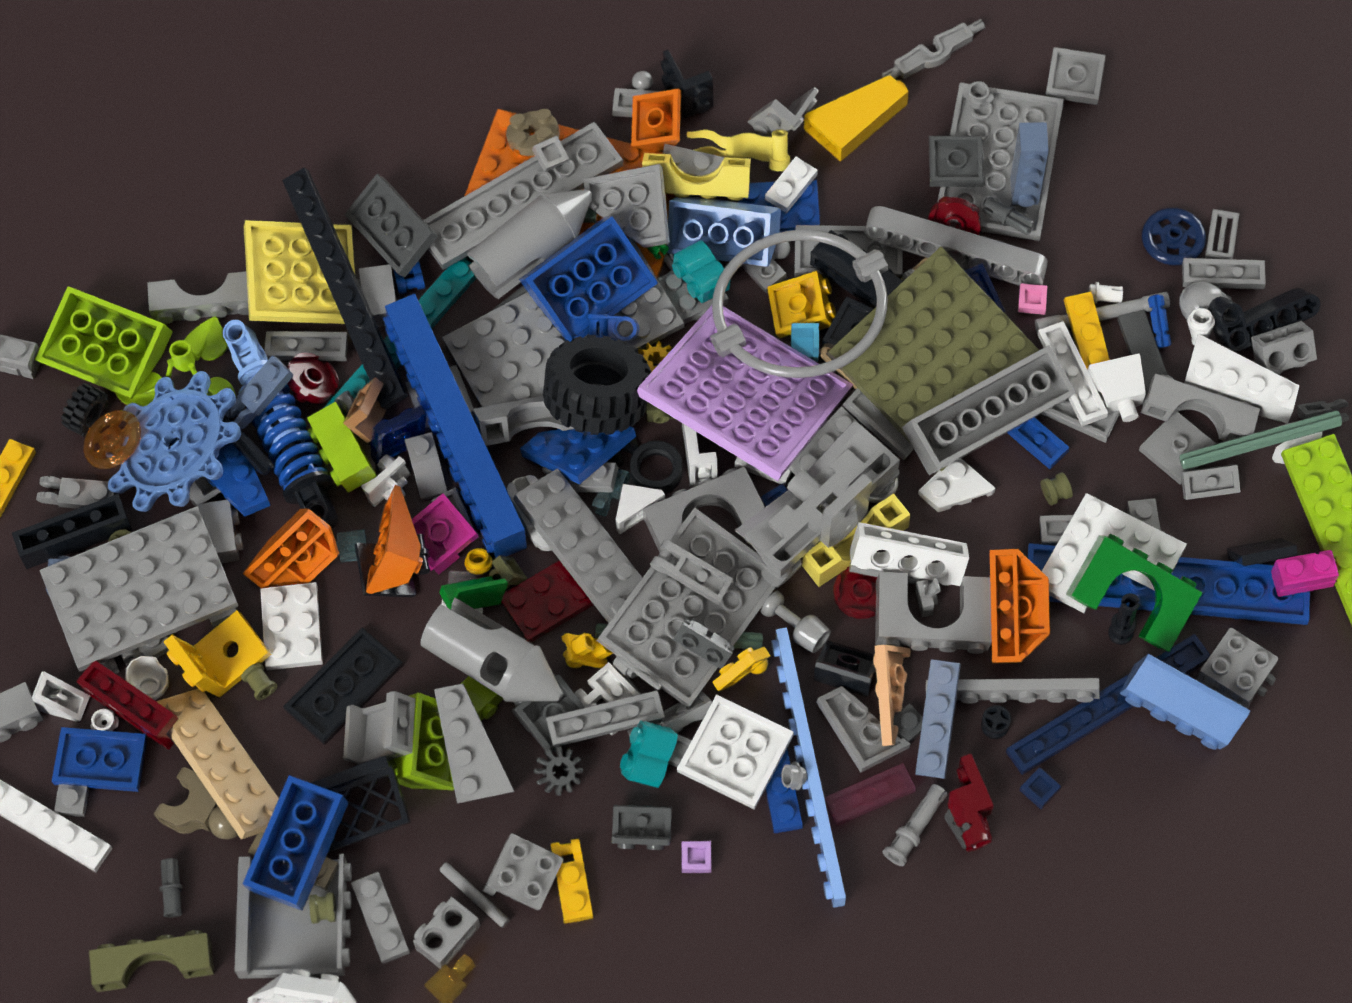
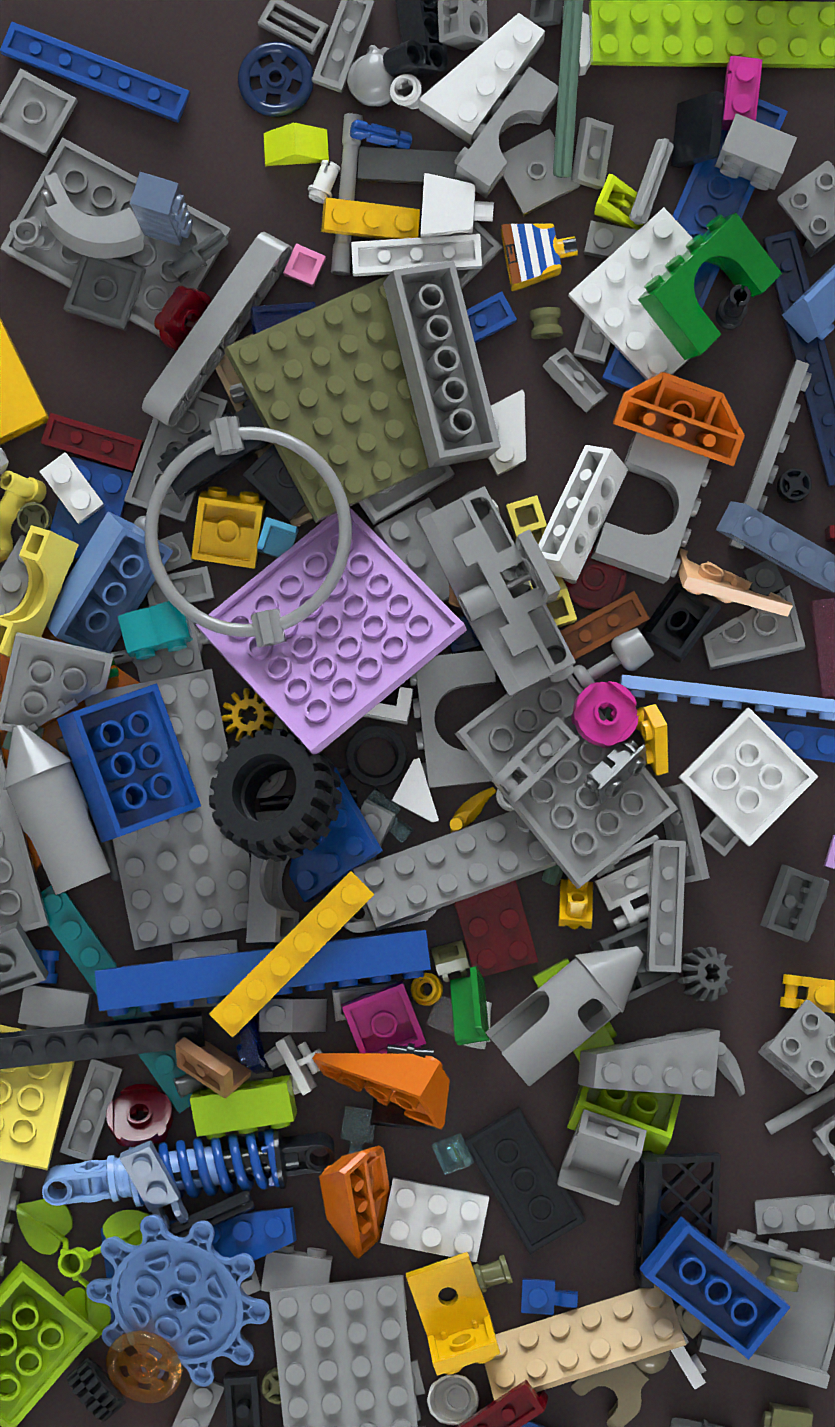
camera: 70 degrees left, 20 degrees up
(225, 858) = (690, 1365): none -> white plate
(249, 728) = (540, 1297): none -> blue plate
(349, 621) = (452, 1153): none -> clear light blue plate
(473, 431) = (291, 954): none -> yellow plate
(488, 817) = (729, 1068): none -> light grey bar
(609, 326) = (199, 756): blue piece -> none
(632, 551) = (470, 810): none -> yellow bar
(648, 754) = (721, 870): teal brick -> none
(741, 607) = (603, 695): none -> dark pink plate
(744, 291) = (192, 584): none -> light grey plate
(759, 167) = (31, 514): none -> olive wheel
(793, 776) = (795, 723): light grey plate -> none
(819, 602) = (604, 625): none -> dark orange plate
(833, 189) = (92, 442): none -> dark red plate
(927, 596) = (629, 509): light grey plate -> none
(992, 133) = (87, 234): none -> light grey arch
(1019, 523) = (575, 379): none -> light grey plate
(1109, 462) = (534, 253): none -> torso
(1124, 109) = (95, 72): none -> blue plate
(1127, 266) = (295, 145): none -> neon yellow slope
(1178, 513) = (616, 203): none -> neon yellow slope
(1205, 532) = (651, 181): none -> light grey axle
(1258, 594) = (755, 152): none -> light grey brick

